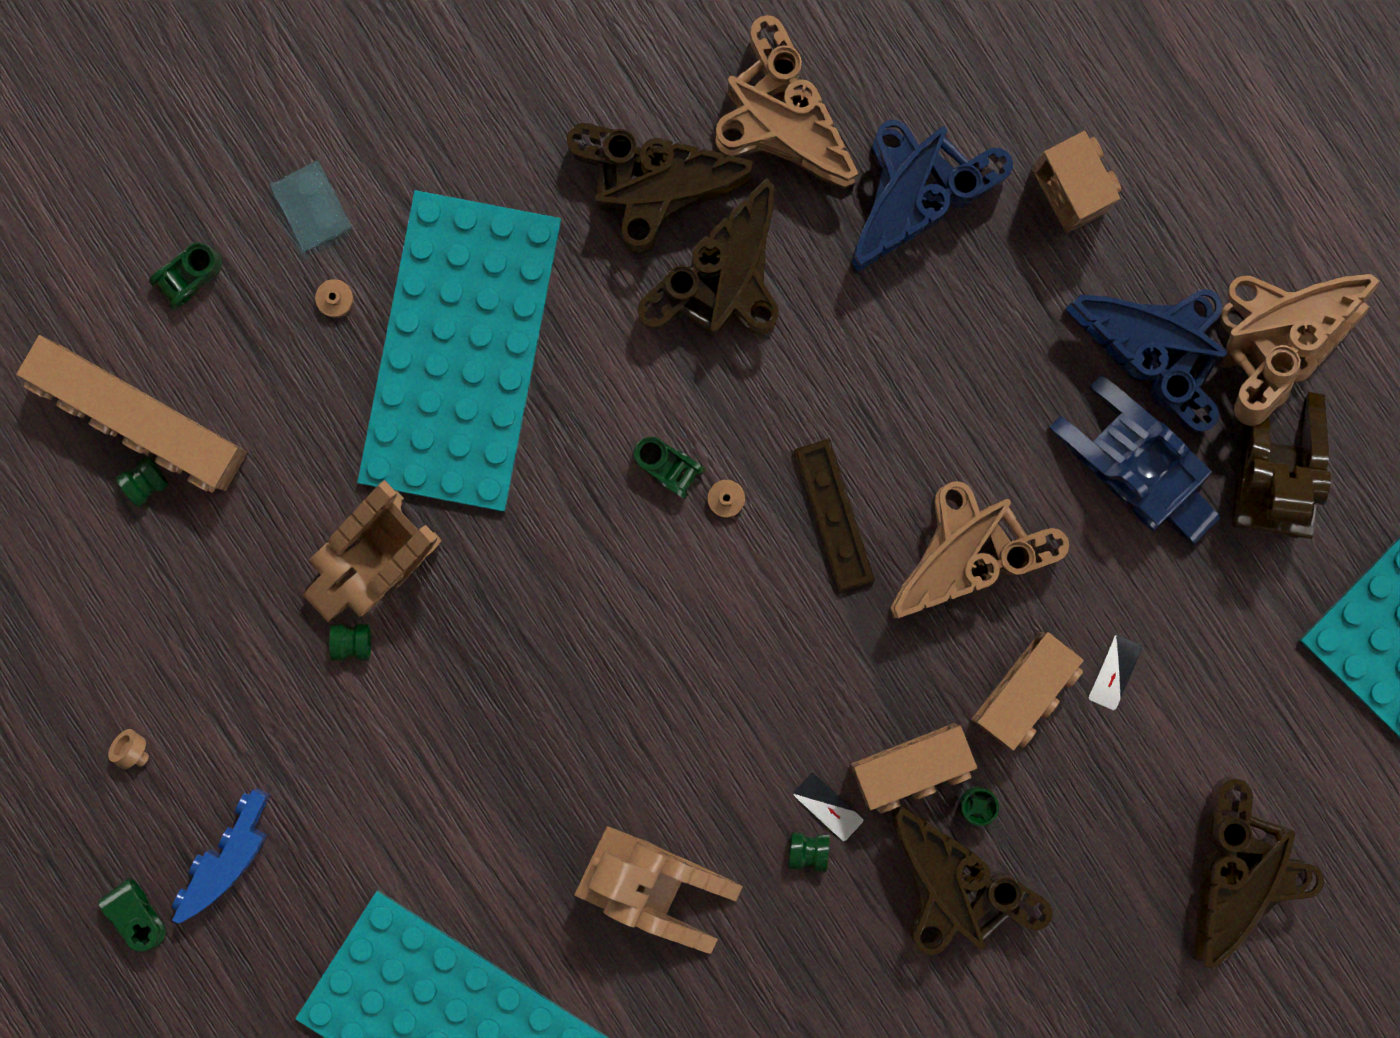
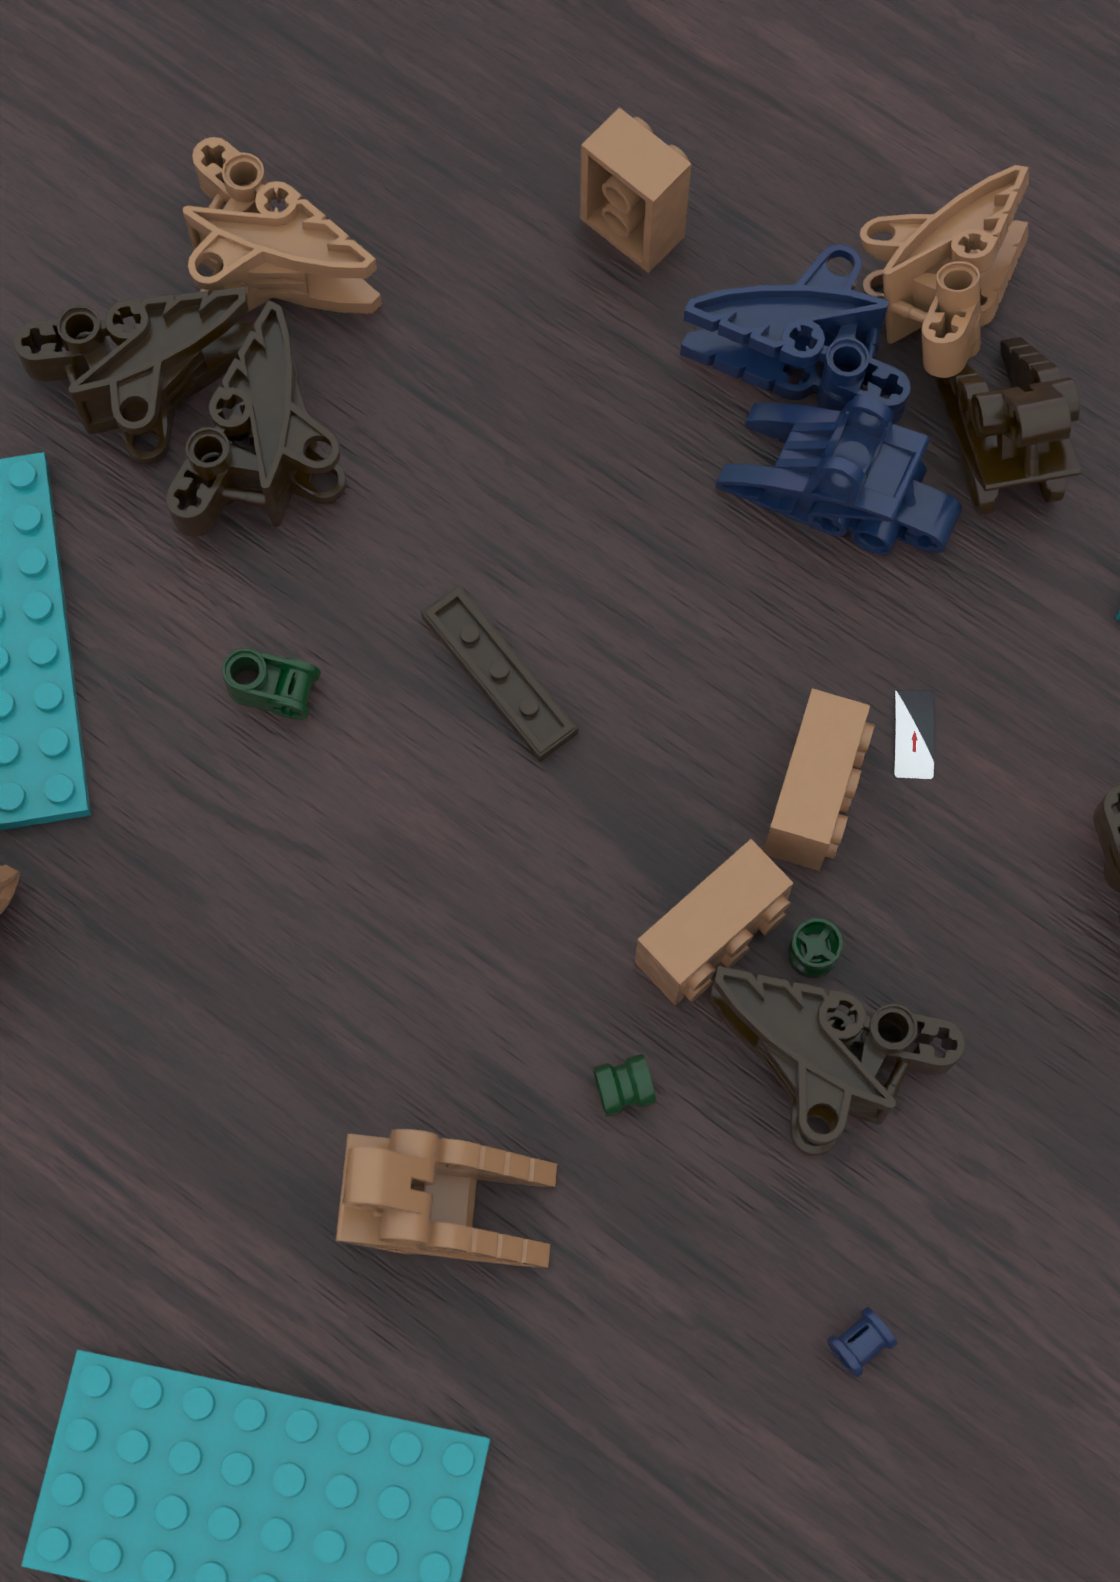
camera: 15 degrees left, 15 degrees down
(724, 508) = (360, 700): medium nougat tile -> none
(828, 807) = (628, 1024): sticker -> none
(898, 205) = (434, 264): dark blue piece -> none
(954, 547) = (660, 666): medium nougat piece -> none

